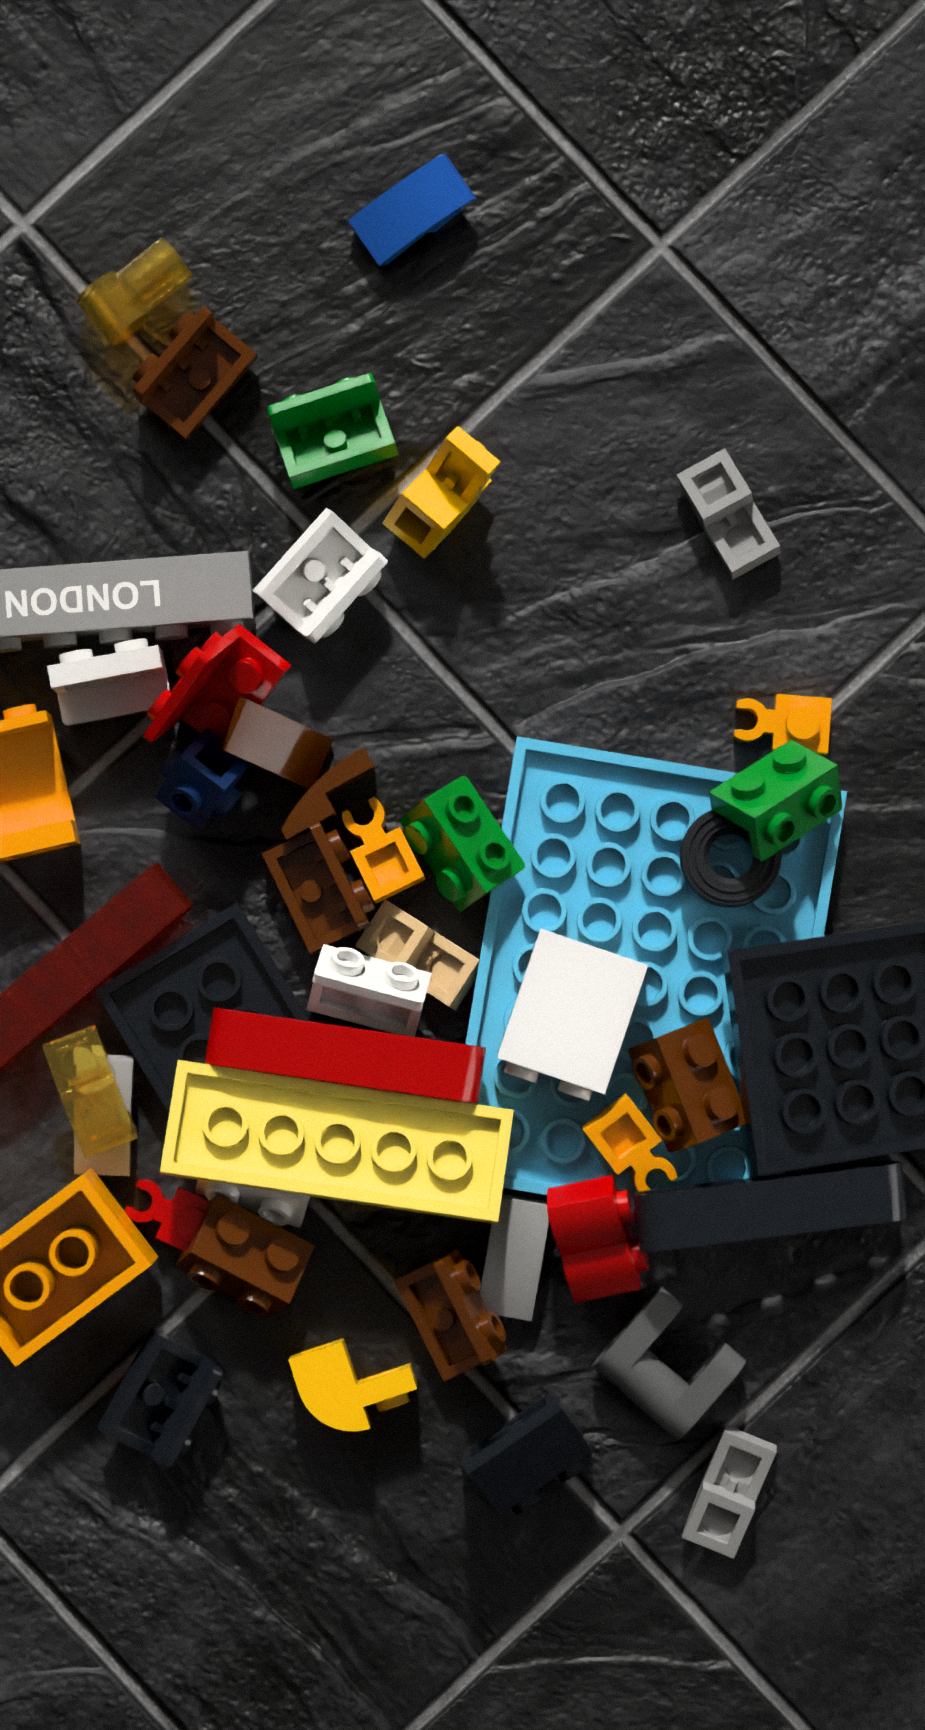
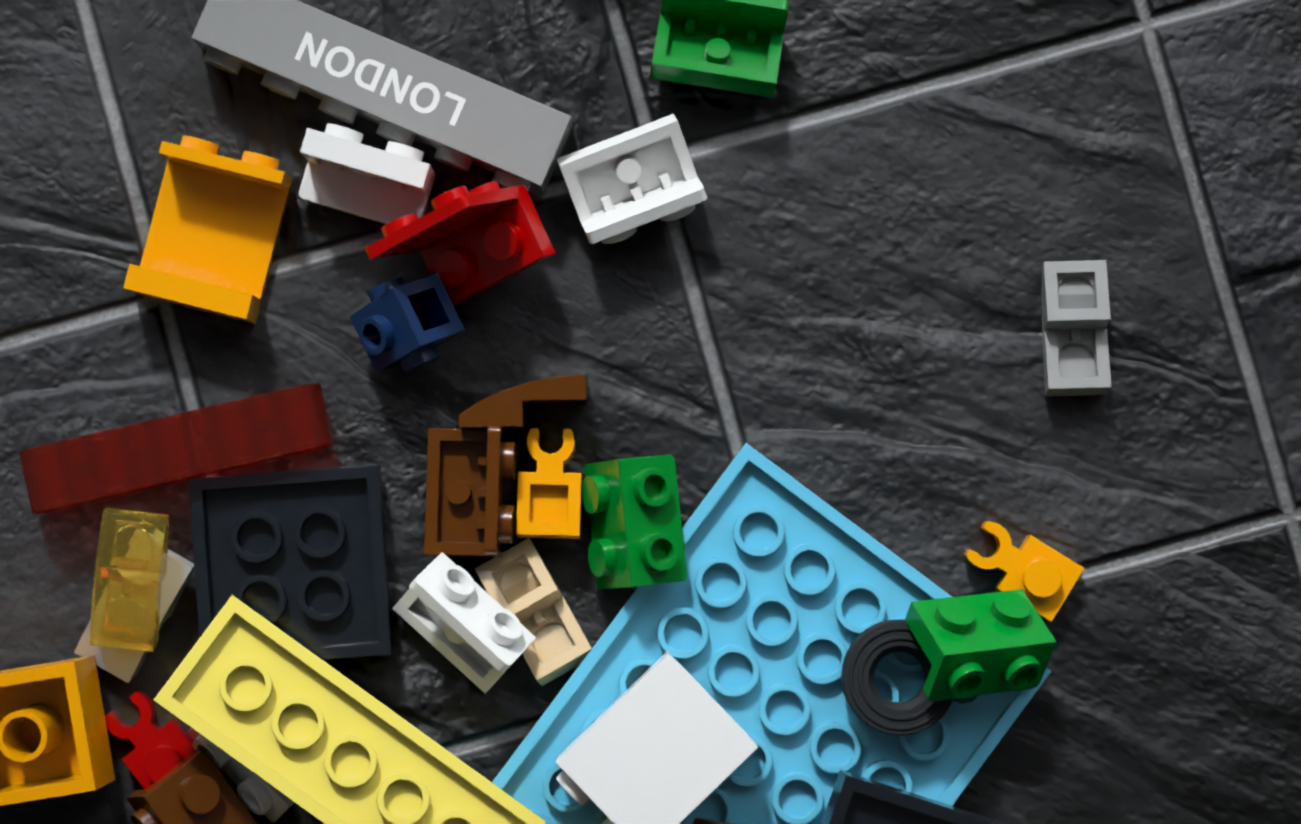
camera: 30 degrees right, 0 degrees up
(275, 743) = (498, 324): reddish brown slope -> none
(345, 1055) = (405, 677): red beam -> none
(442, 492) = (798, 158): yellow brick -> none

